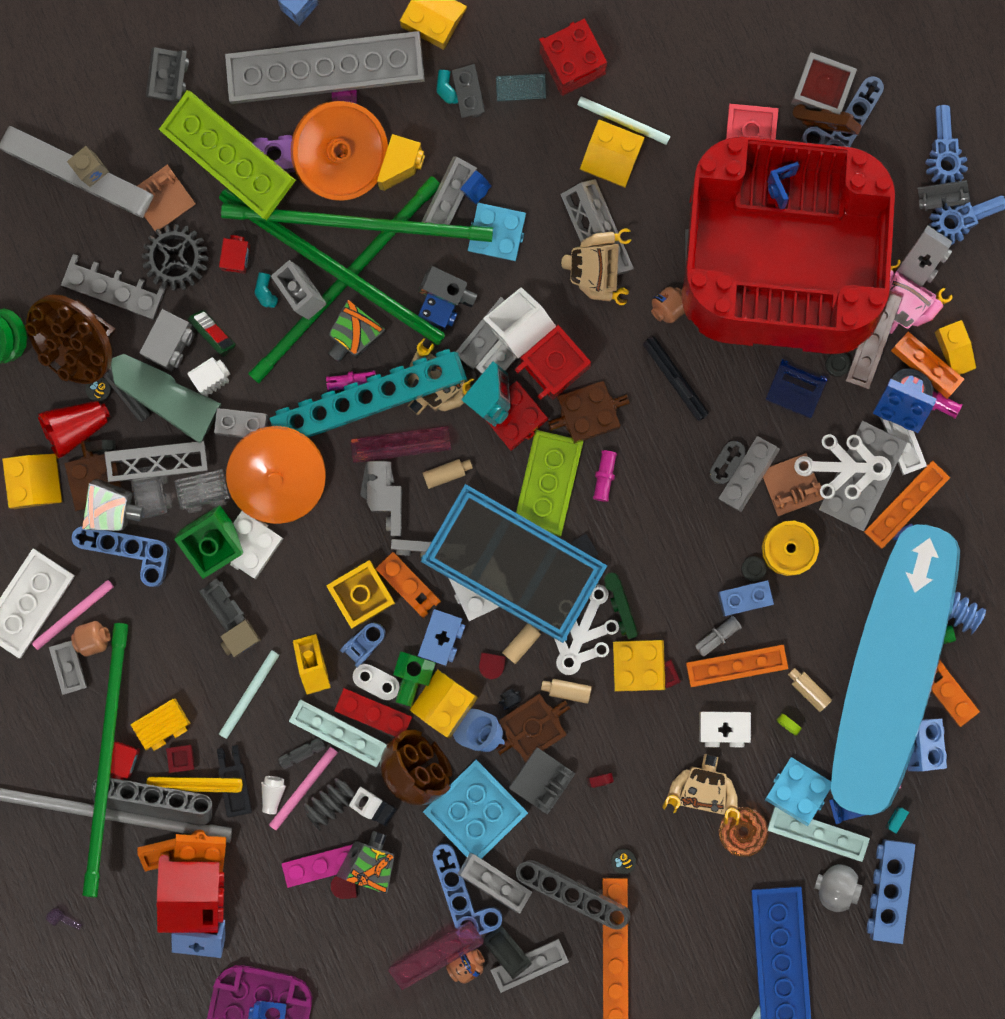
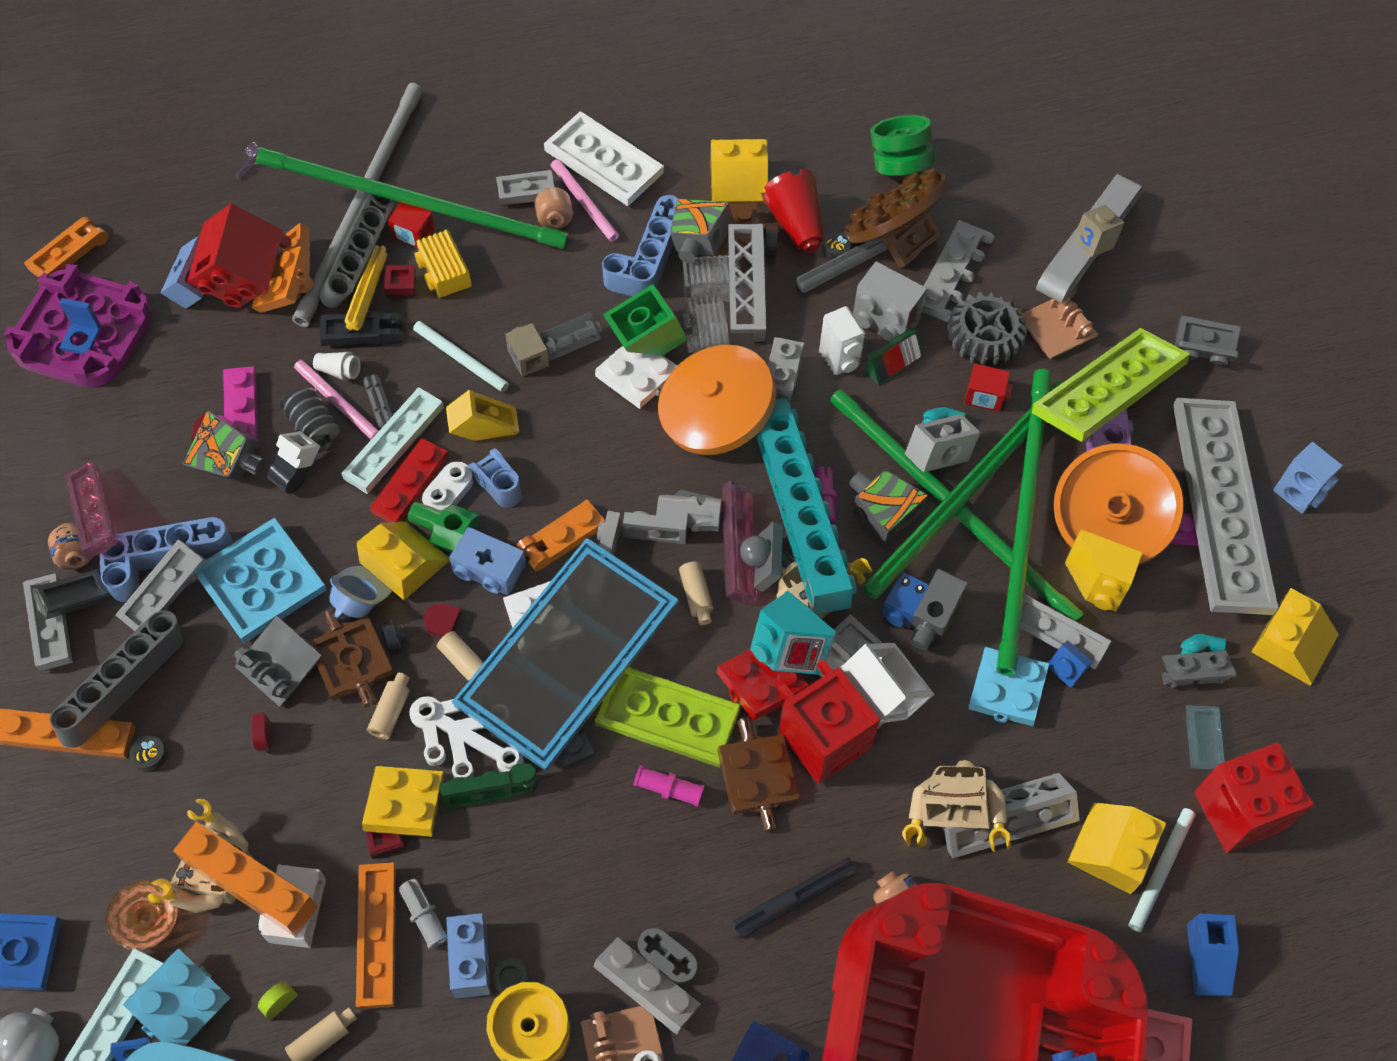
camera: 90 degrees right, 25 degrees down
(161, 394) = (824, 292): sand green panel -> none
(360, 594) = (556, 474): yellow brick -> none
(403, 770) = (323, 498): reddish brown cylinder -> none
(412, 422) = (765, 555): none -> dark grey tile
(684, 88) = (1213, 954): none -> blue slope
(718, 758) = (246, 879): none -> orange brick

